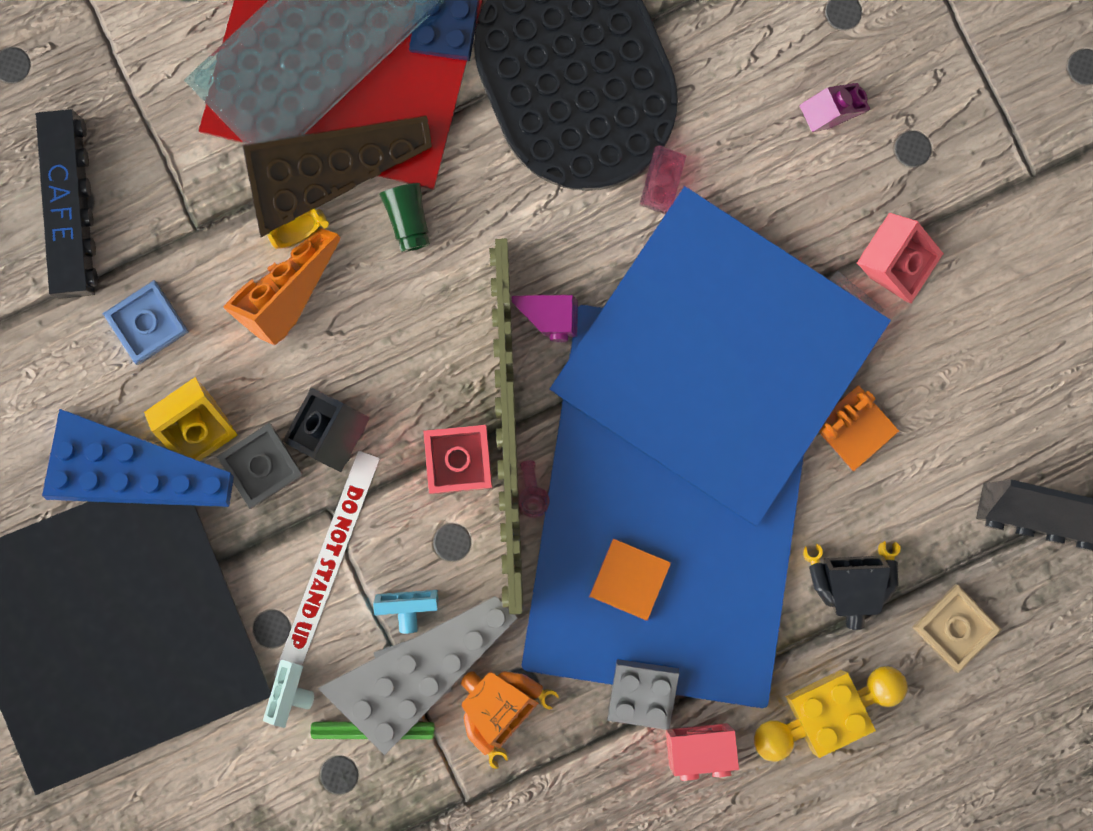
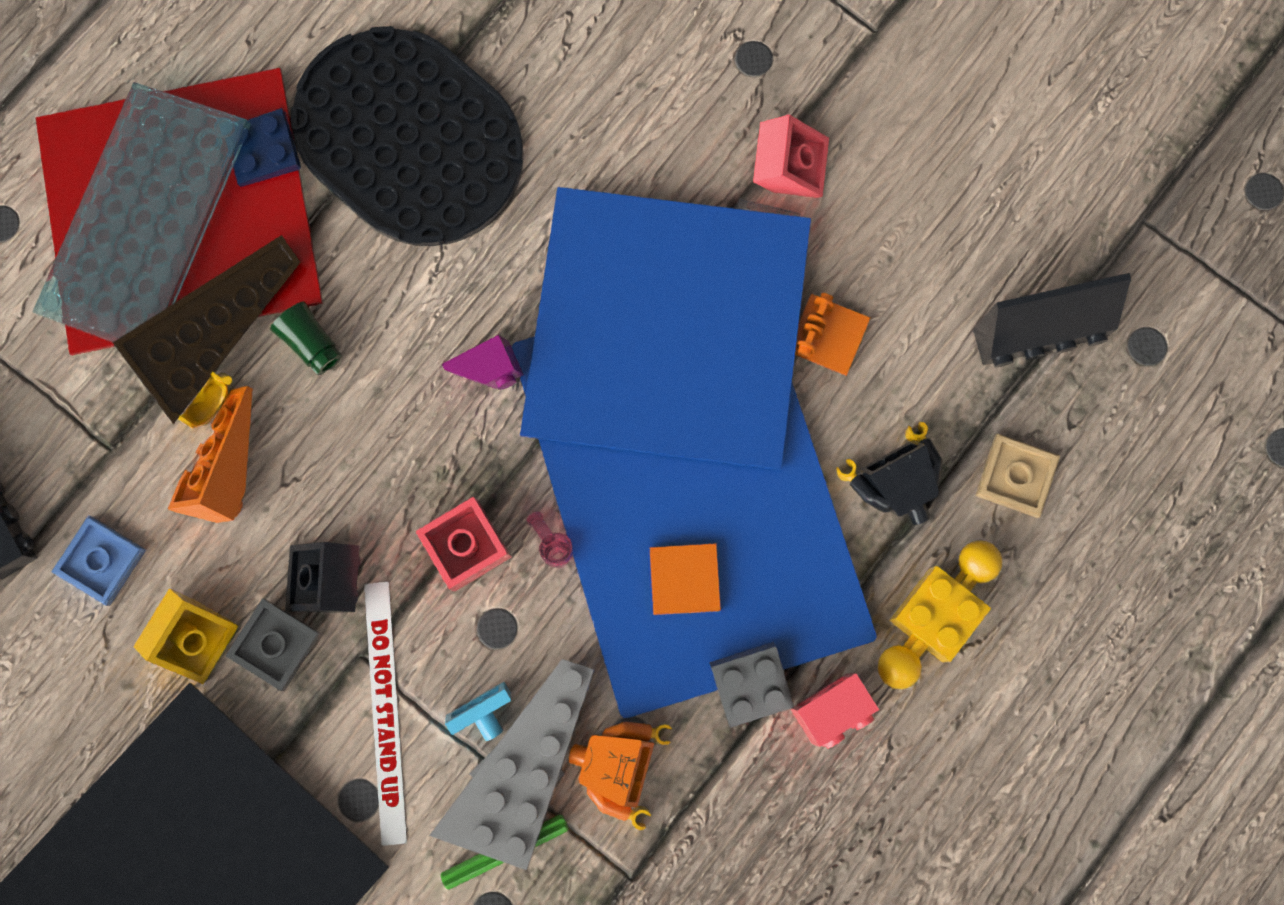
camera: 20 degrees left, 5 degrees down
(111, 466) = (125, 714): blue wing -> none
(286, 694) = (401, 857): light aqua tile -> none
(506, 436) = (499, 499): olive wing -> none
(662, 179) = (534, 191): clear pink plate -> none
(834, 106) = (662, 52): slope -> none

